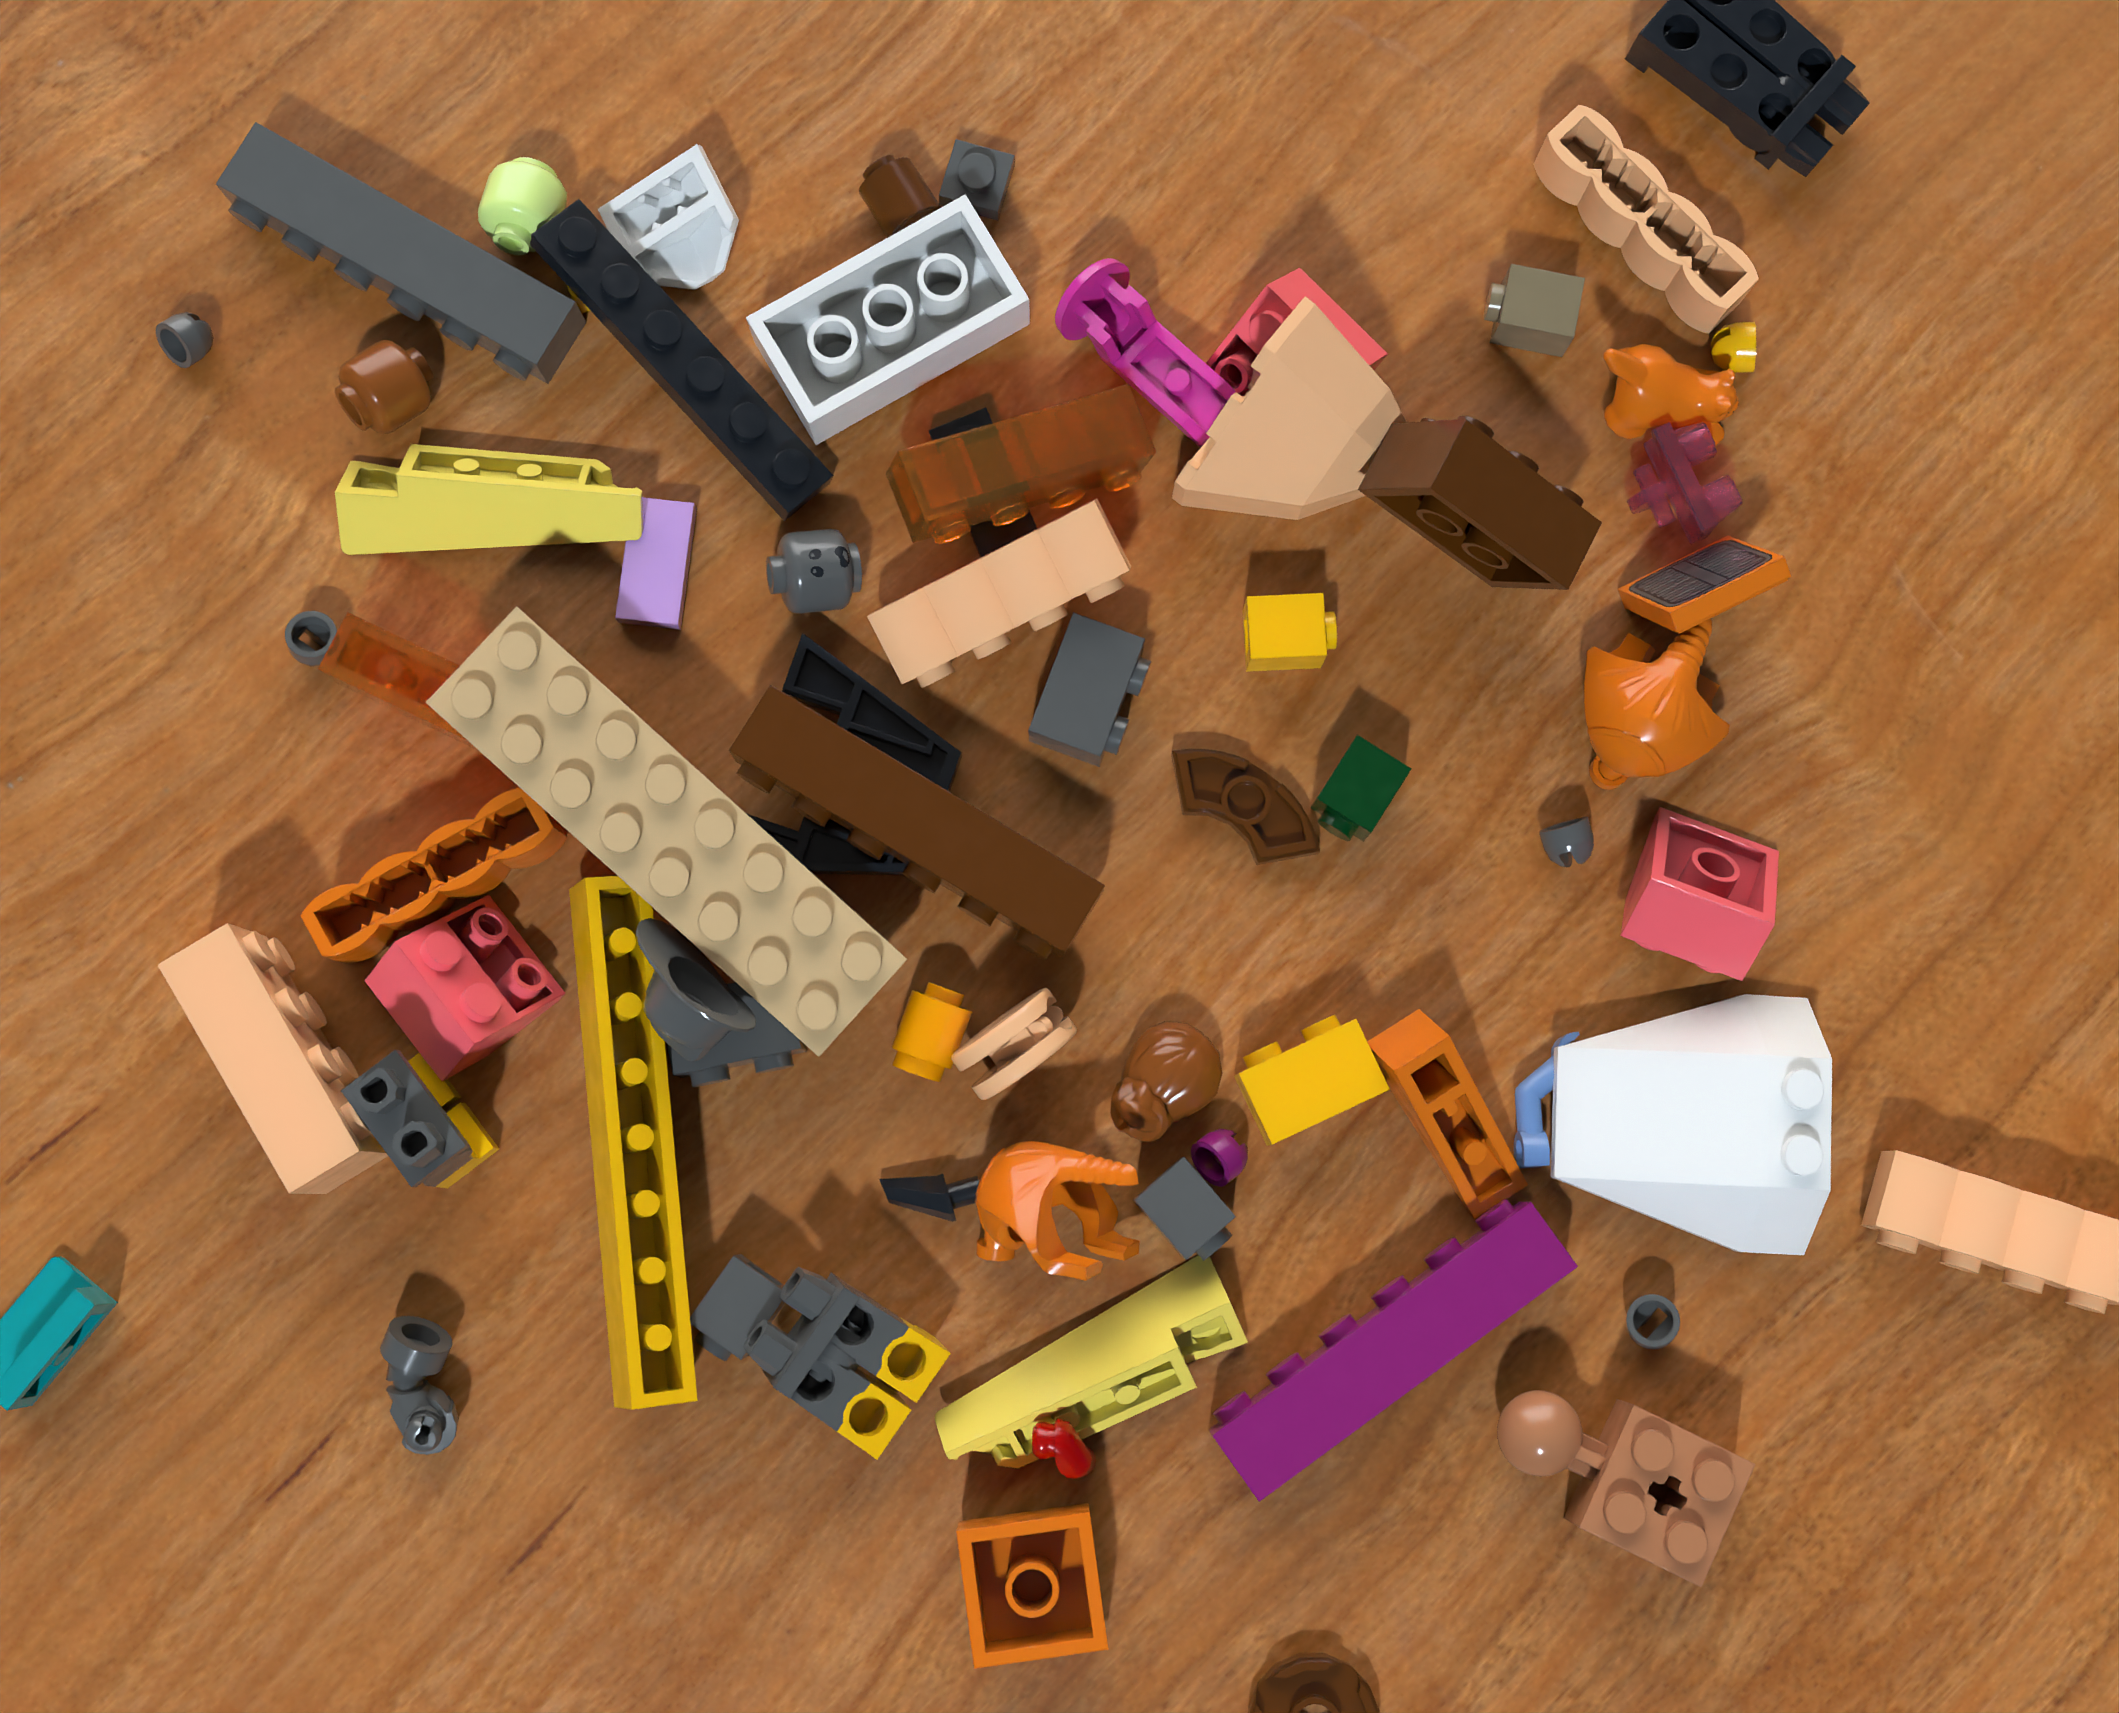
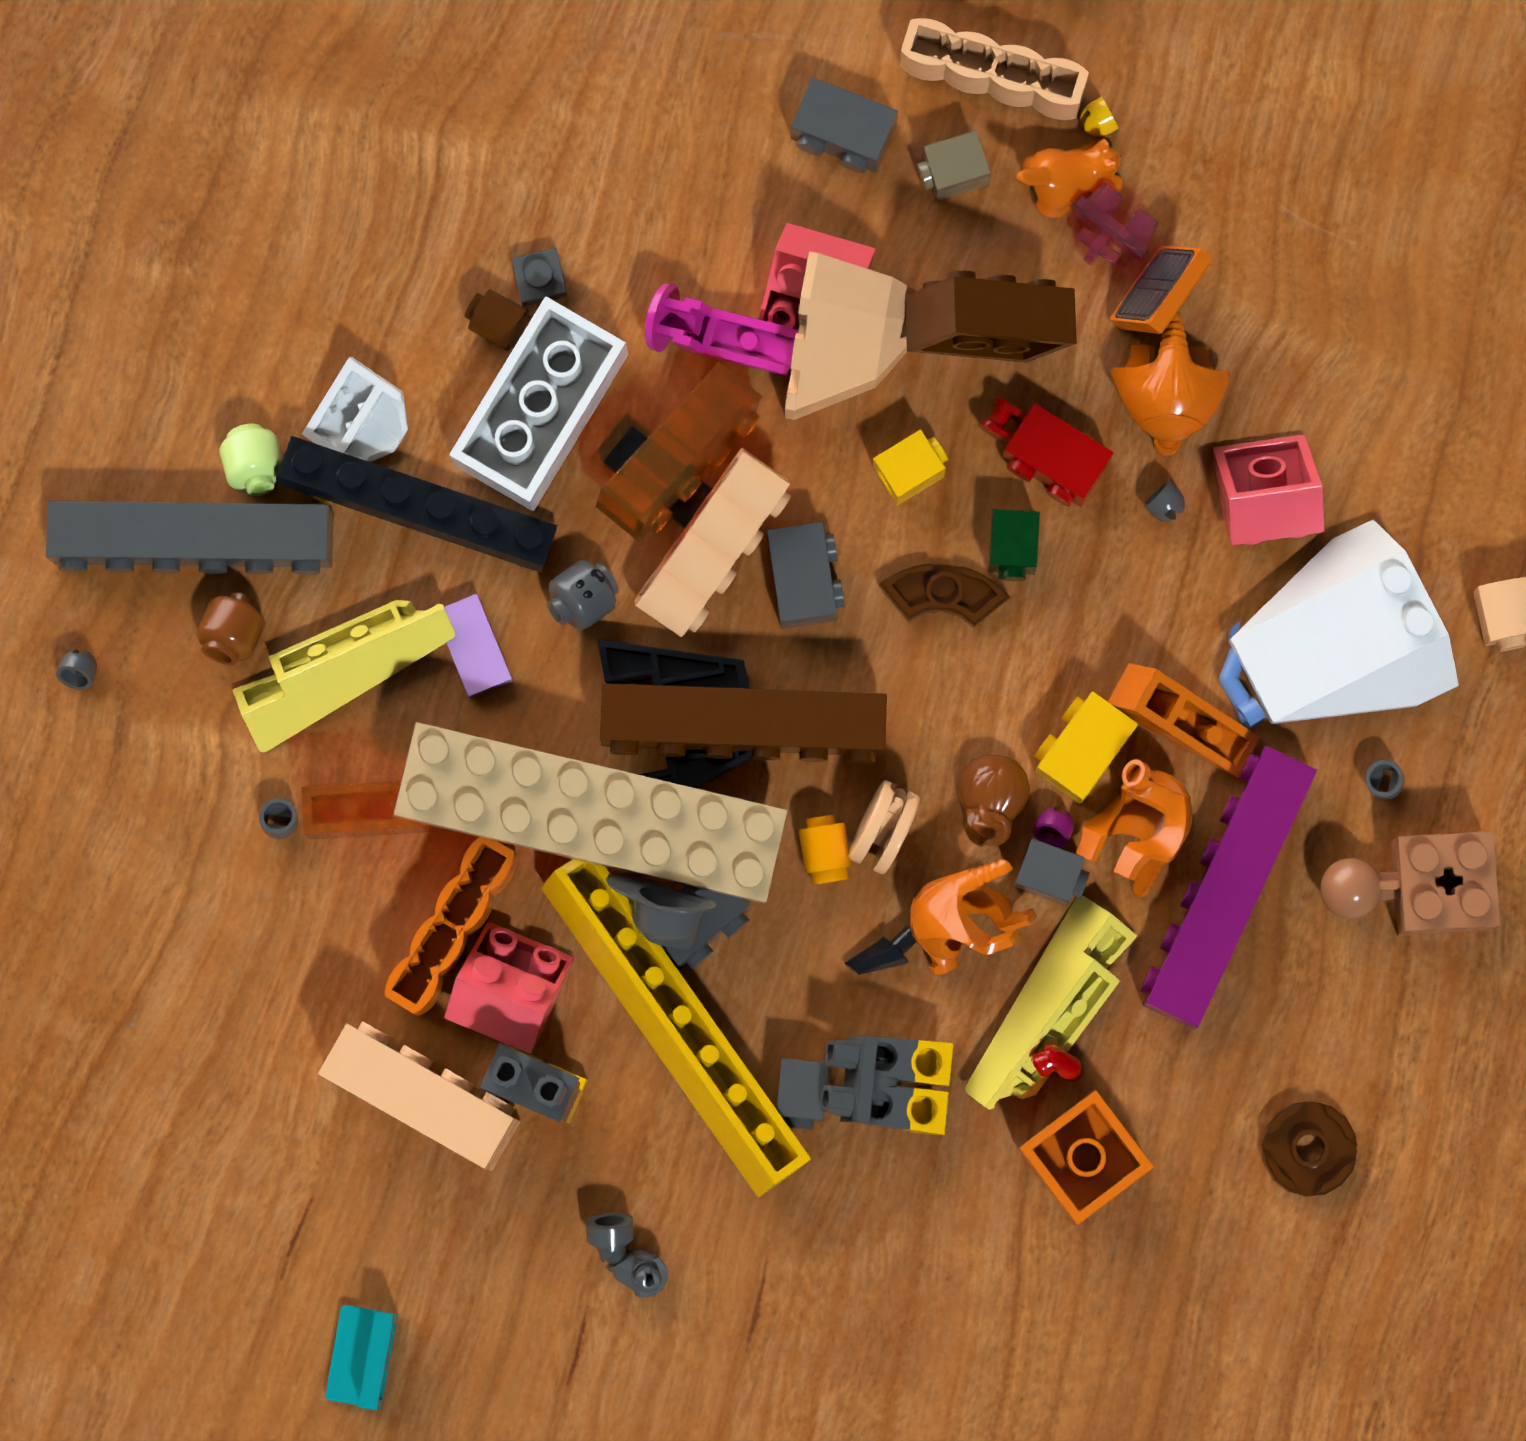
camera: 20 degrees left, 0 degrees up
(1349, 1200) = (1151, 809): none -> orange piece
(1429, 193) = (843, 126): none -> dark grey brick
(1461, 704) = (1048, 451): none -> red brick

